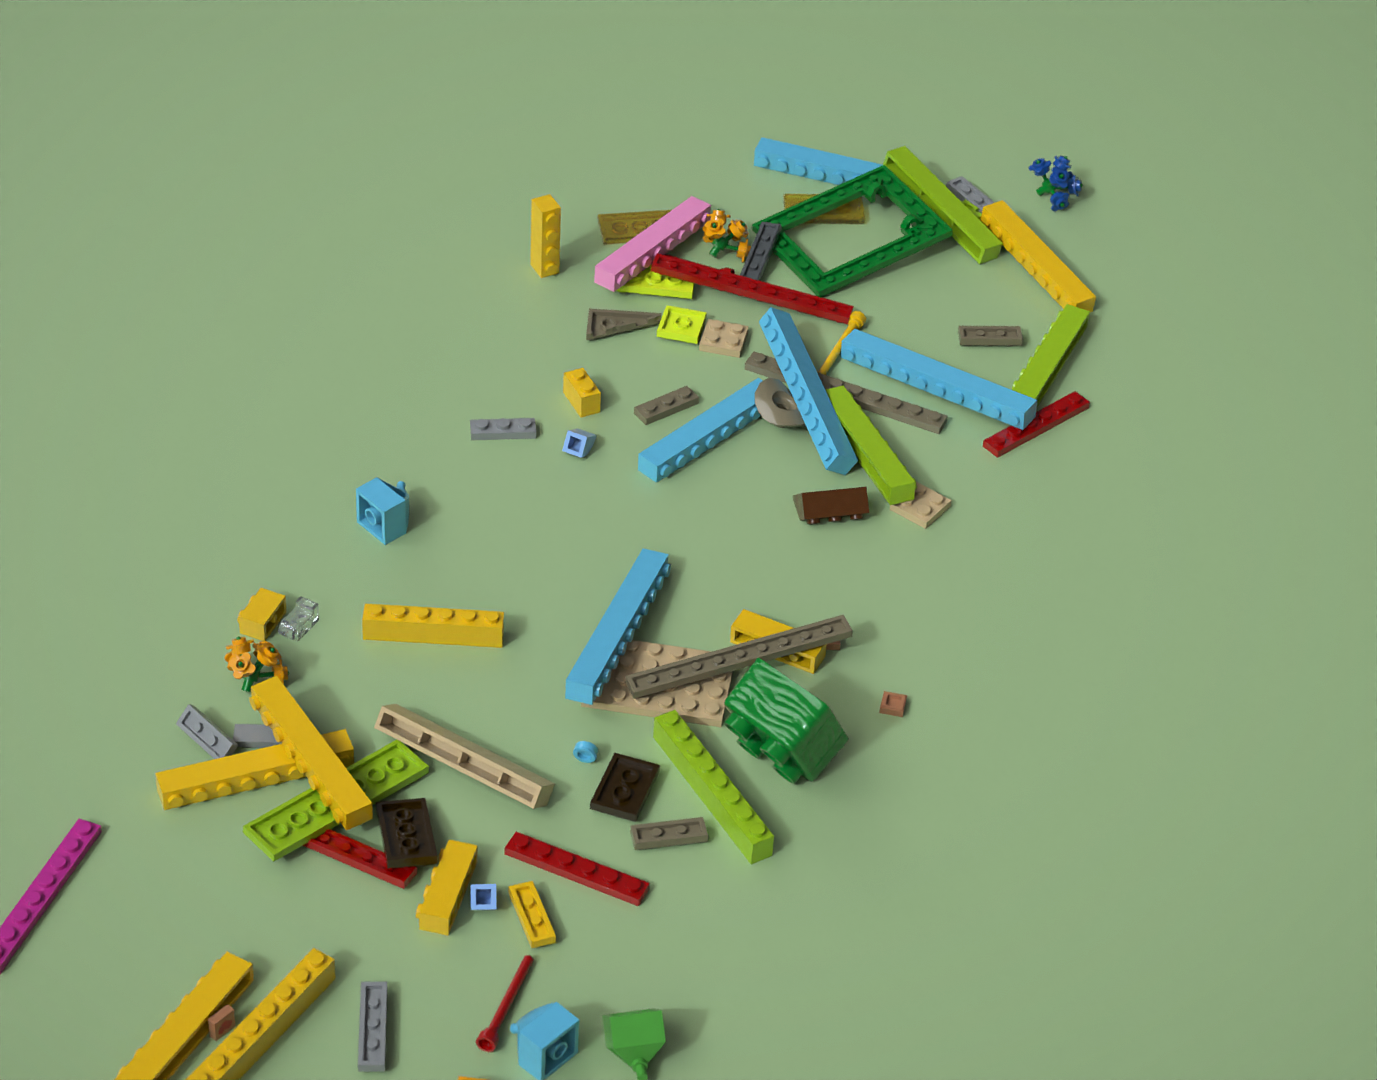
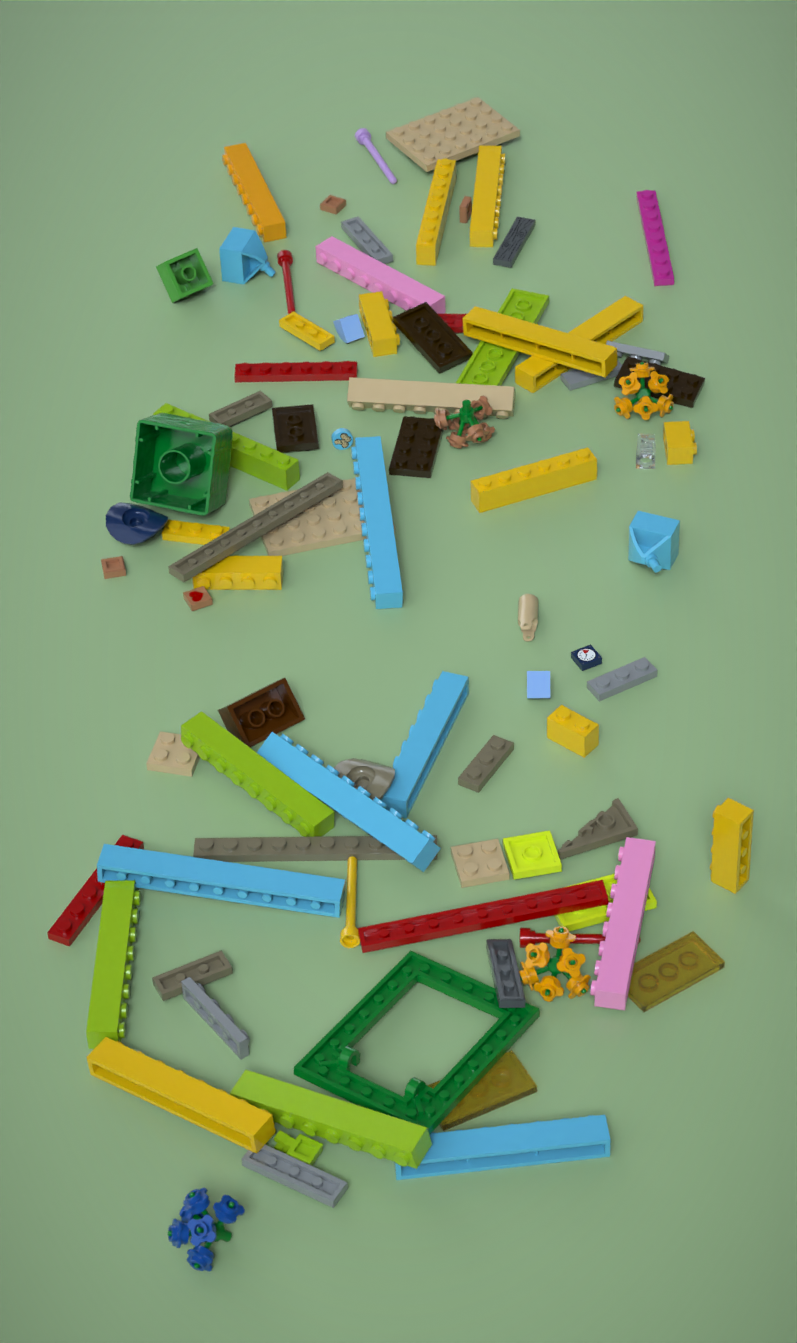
camera: 160 degrees right, 0 degrees up
(200, 956) = (514, 242): none -> dark grey tile
(213, 692) = (681, 385): none -> dark brown plate
(401, 955) = (376, 276): none -> bright pink brick
(440, 702) = (464, 418): none -> nougat plant
(514, 720) = (416, 448): none -> dark brown plate
(517, 455) = (586, 657): none -> dark blue tile
(541, 503) = (528, 615): none -> tan piece
(854, 719) = (133, 522): none -> dark blue hat
(985, 298) = (211, 1013): none -> light grey plate

